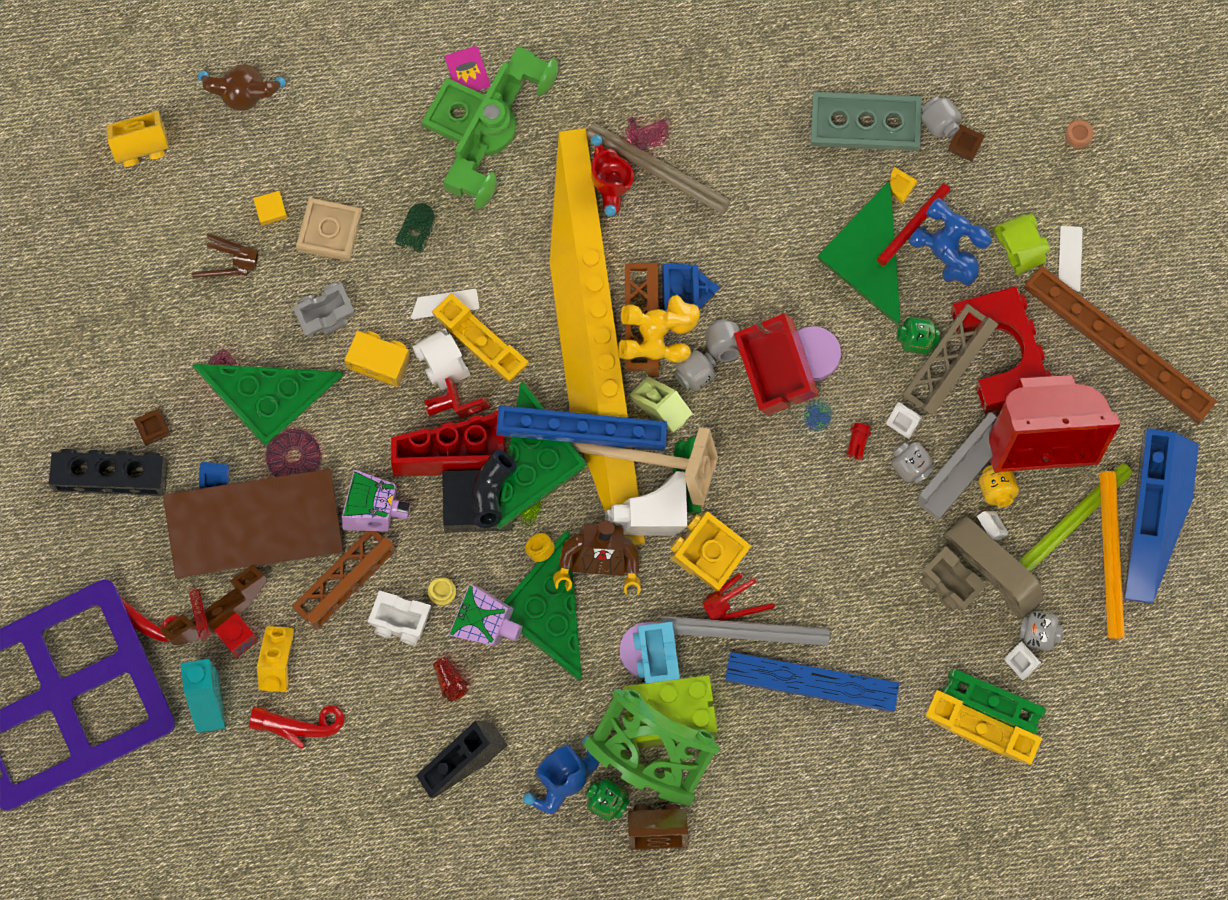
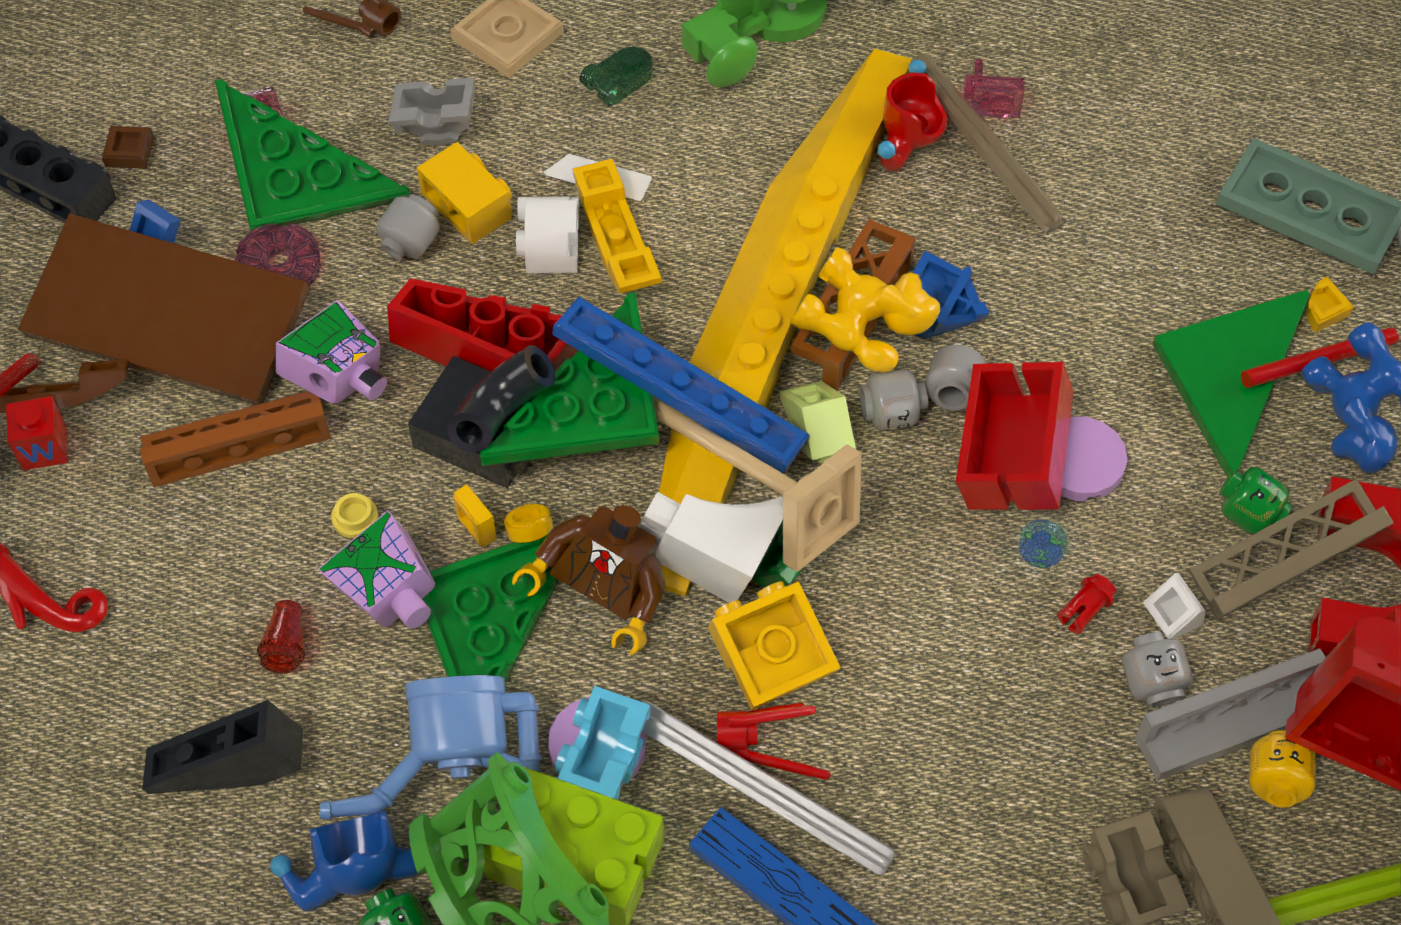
camera: 25 degrees right, 15 degrees down
(273, 659) = (51, 490): yellow bracket -> none
(360, 399) = (408, 227): none -> light grey head
(399, 617) = (268, 516): white cylinder -> none
(451, 400) = (528, 283): red bracket -> none
(509, 558) = (474, 516): none -> yellow tile
(529, 517) = (545, 473): clear neon green tile -> none
(578, 683) = (457, 727): none -> medium blue piece
(993, 525) = (1245, 823): white tile -> none

